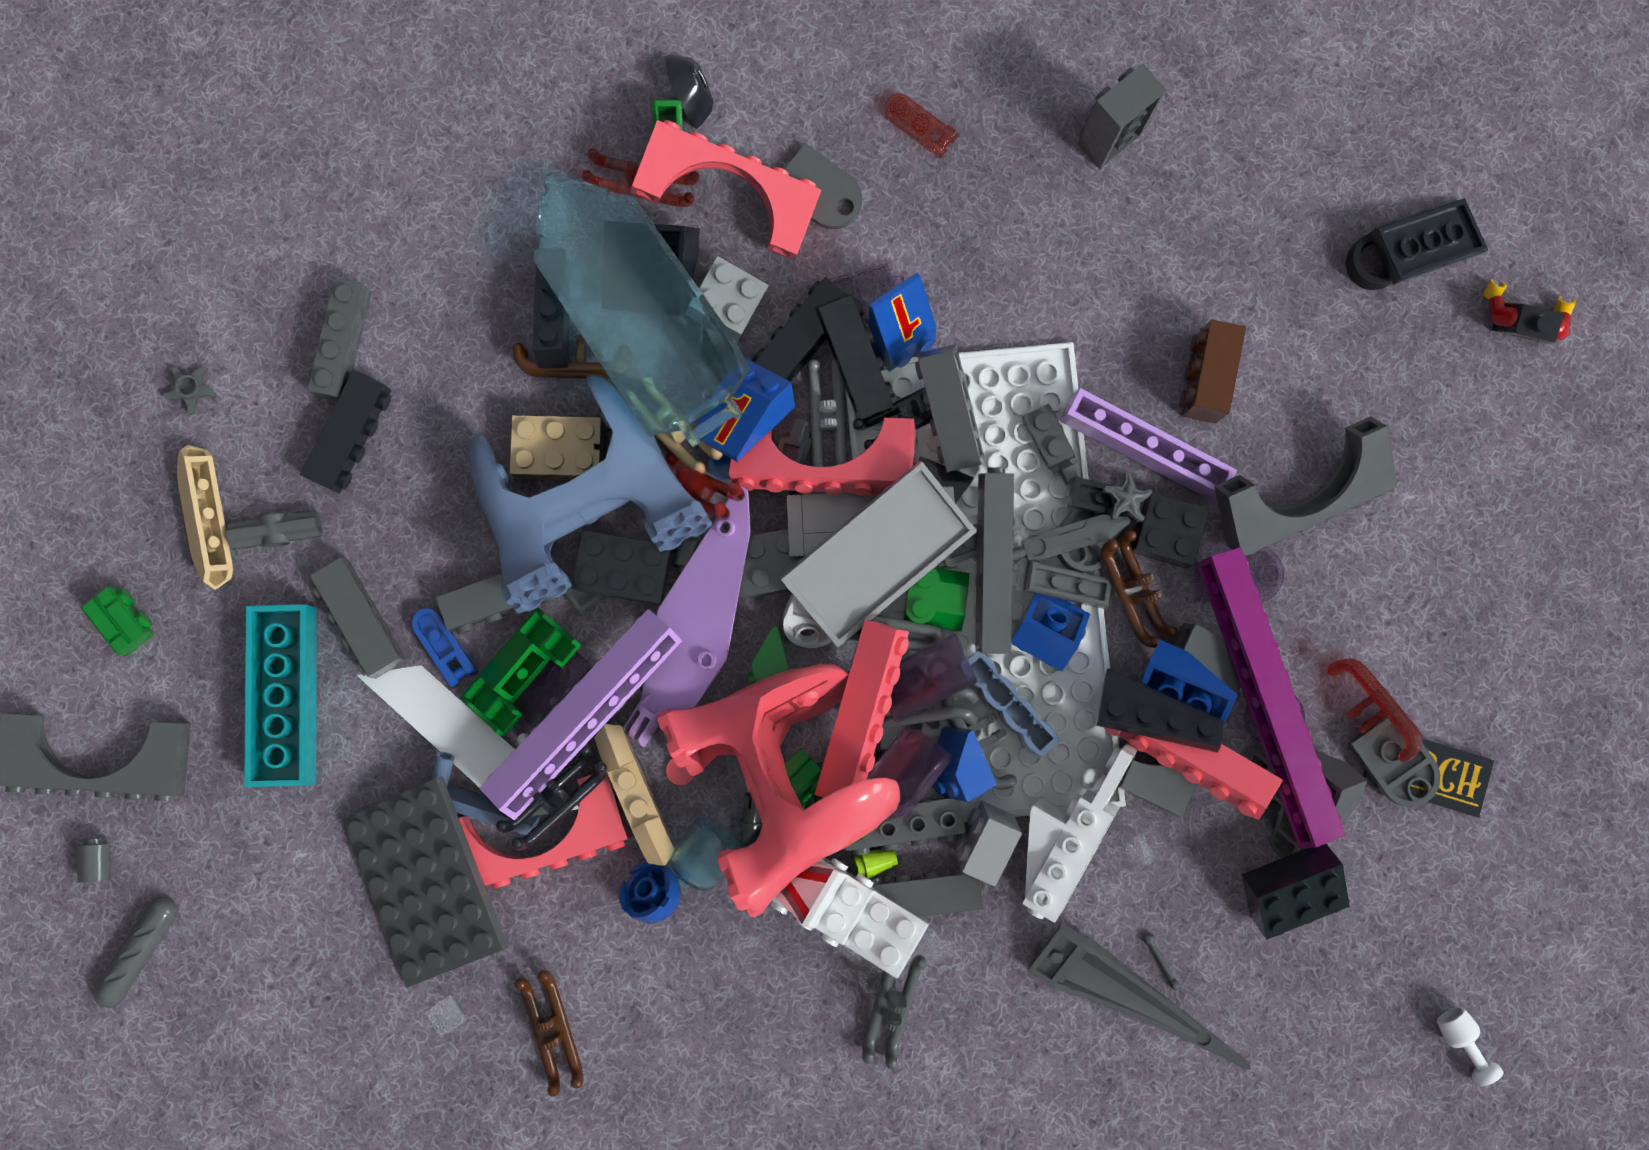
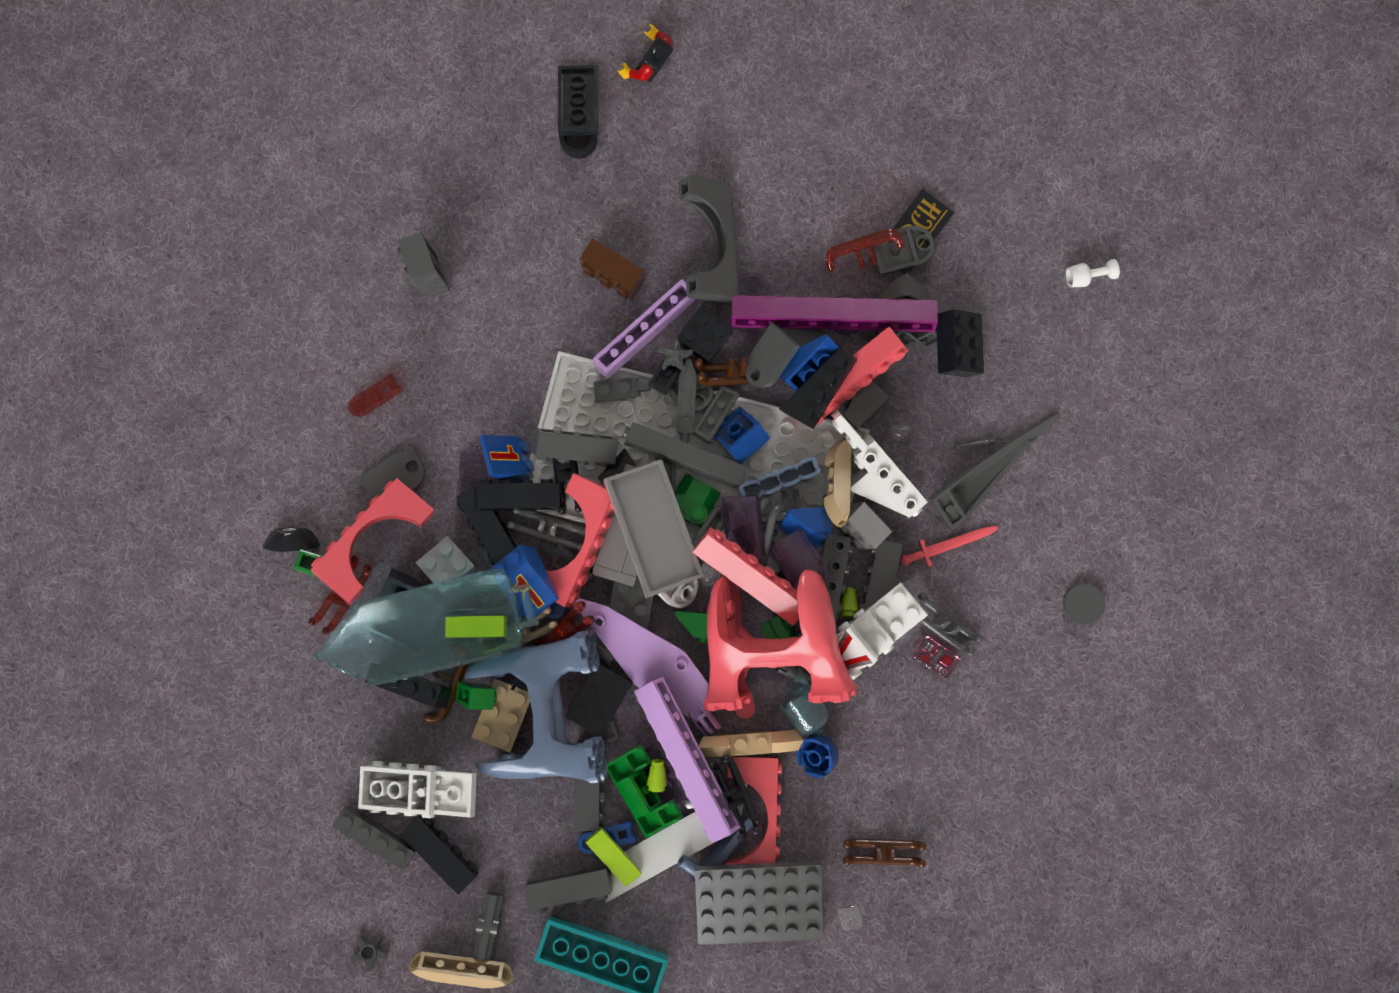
camera: 70 degrees left, 0 degrees up
(416, 368) = (416, 790): none -> white wedge
(419, 662) = (613, 856): none -> lime tile
(544, 682) = (657, 776): none -> lime cone
(568, 400) = (475, 695): none -> green slope
(659, 365) = (475, 626): none -> lime tile
(843, 1011) = (936, 657): none -> slope
(1003, 970) = (929, 551): none -> coral sword
(1021, 792) = (838, 492): none -> tan brick
(1175, 630) = (770, 356): none -> dark grey tile

